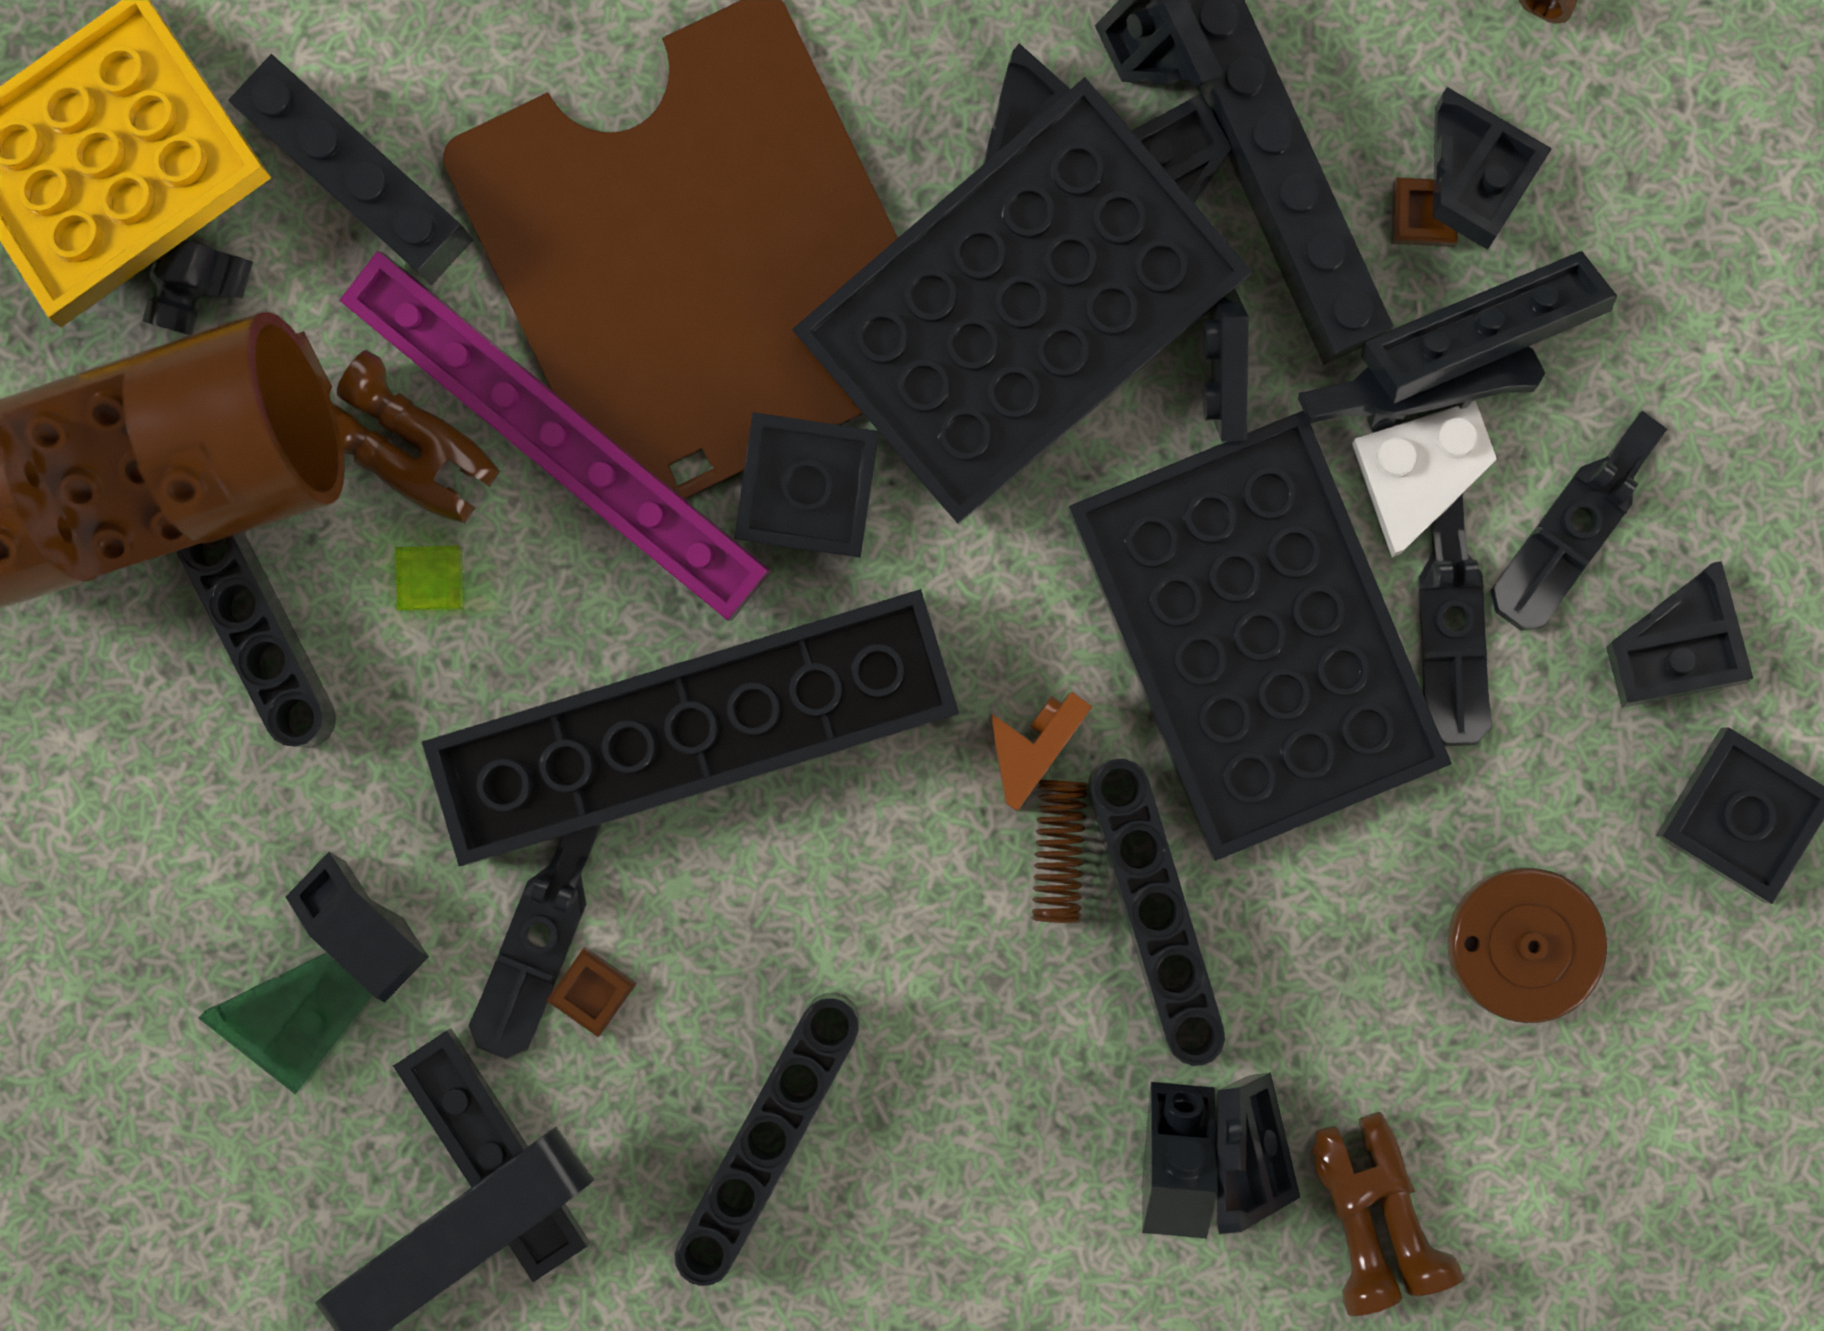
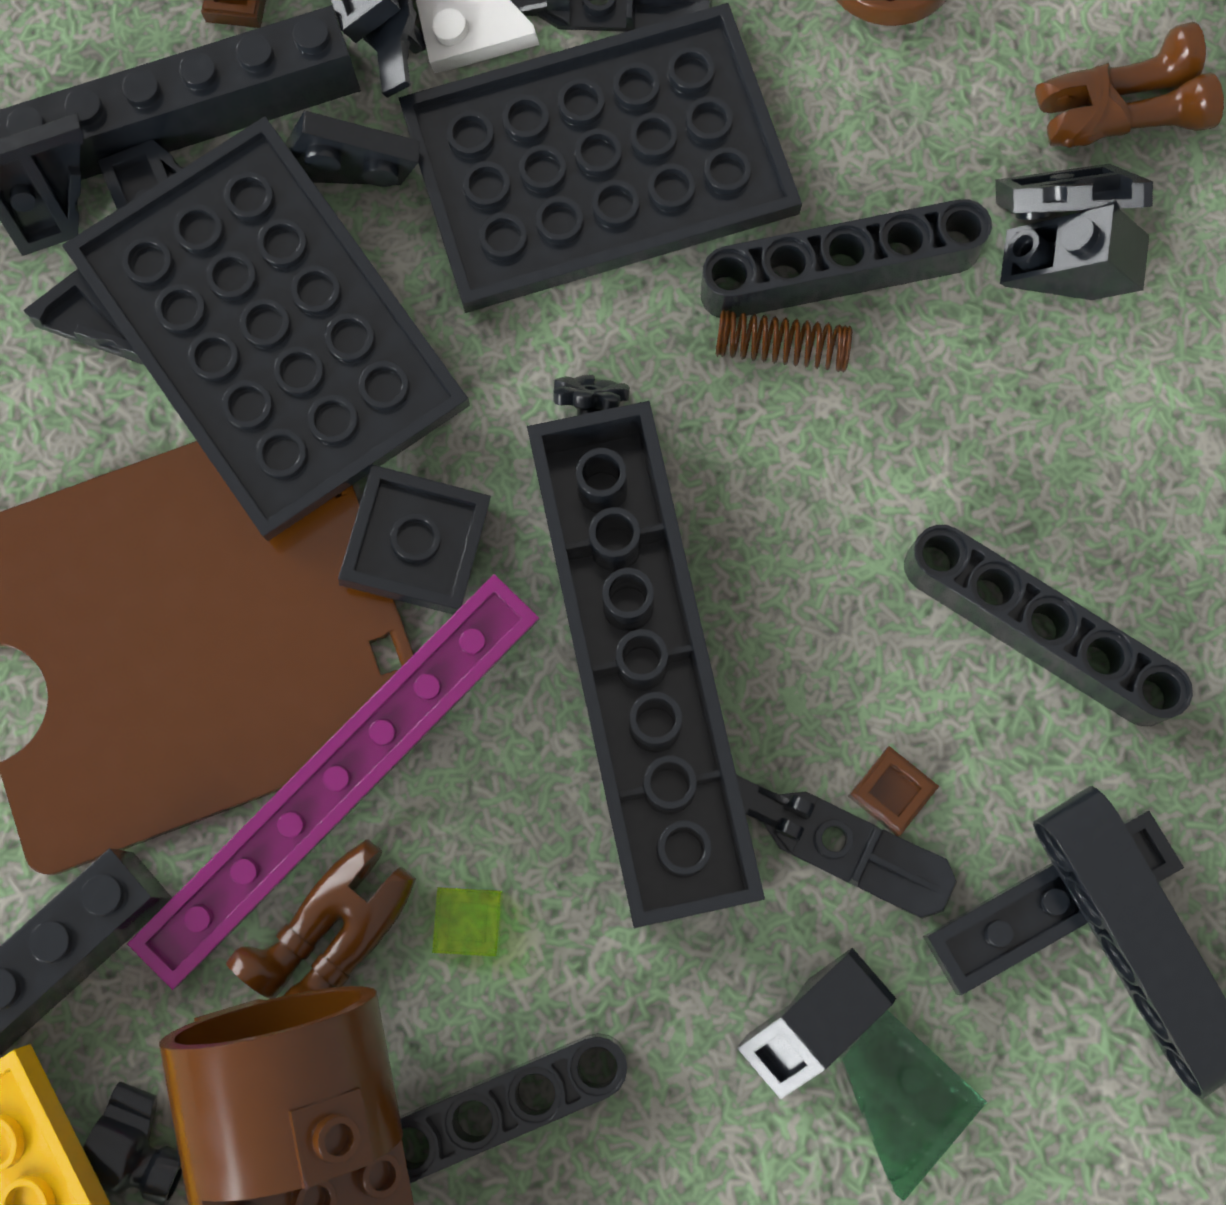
camera: 85 degrees left, 10 degrees down
(978, 650) = (587, 395): none -> black plant
(1024, 762) = (697, 360): dark orange slope -> none

